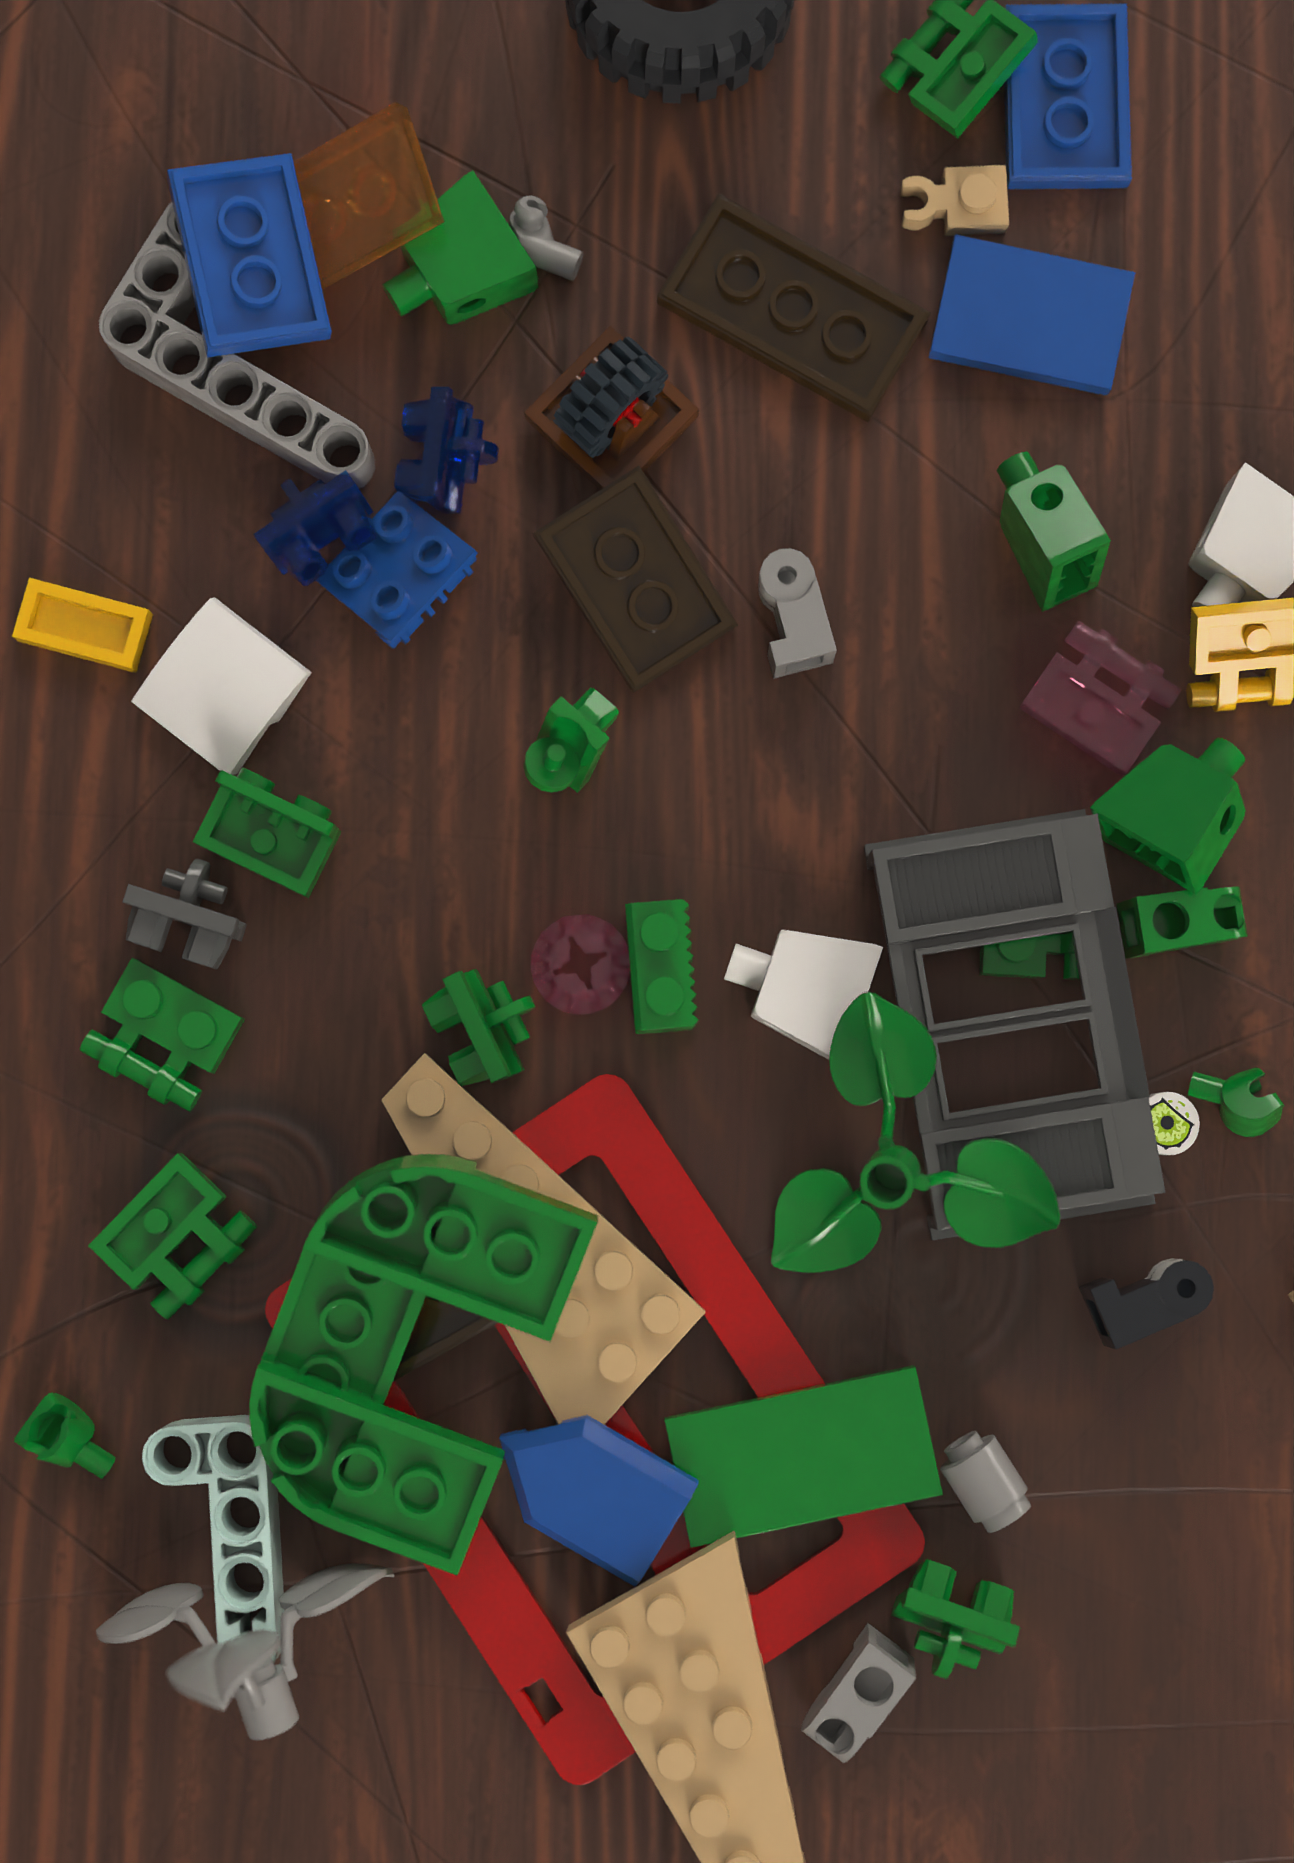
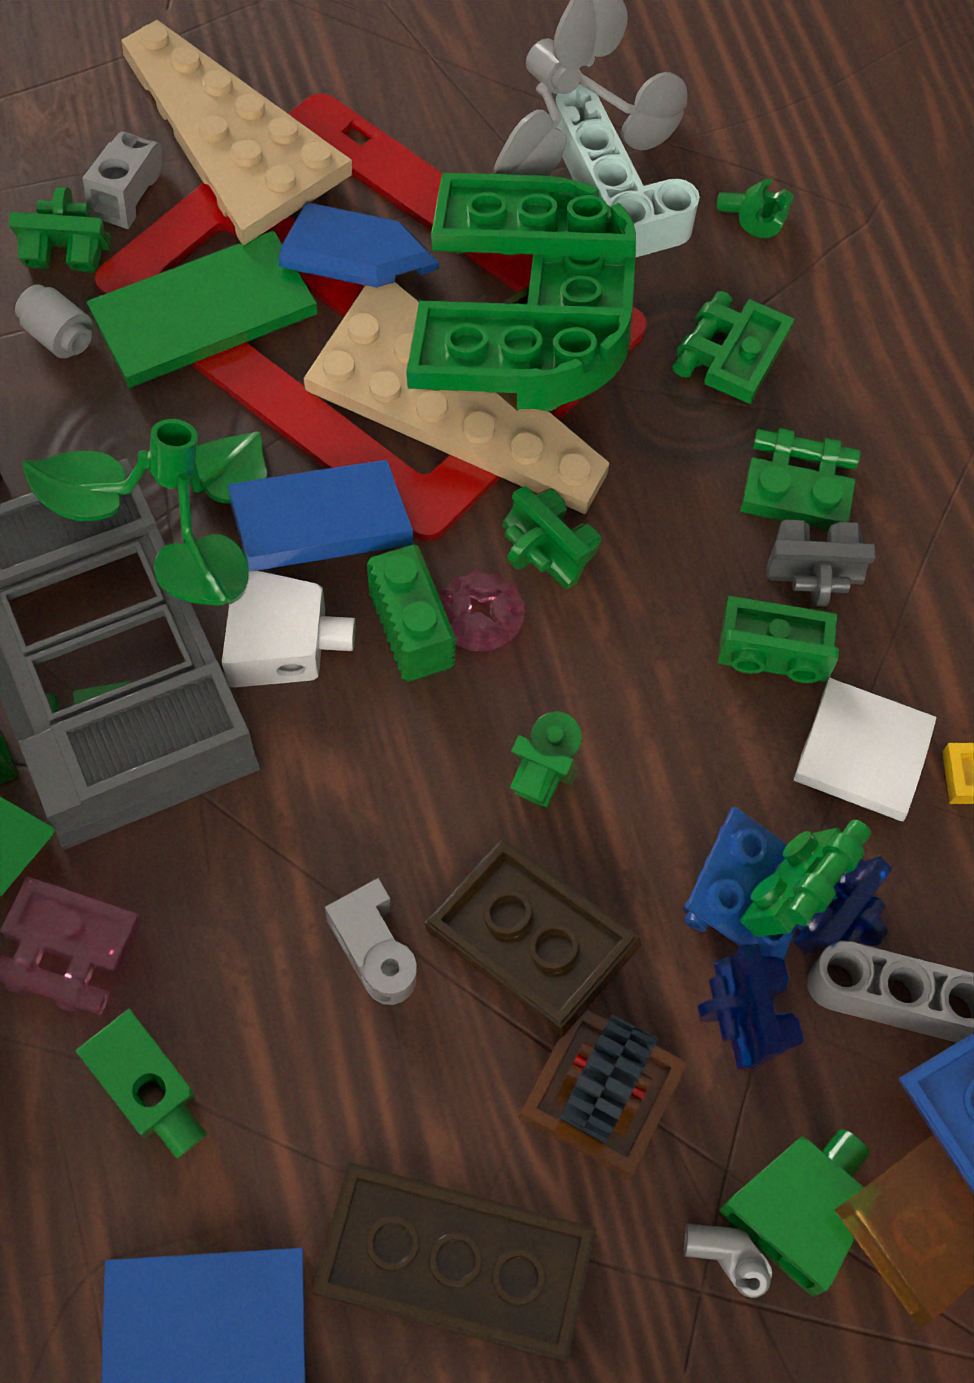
camera: 160 degrees right, 20 degrees down
(350, 534) = (805, 879): none -> green plate
(733, 1110) = (319, 515): none -> blue tile

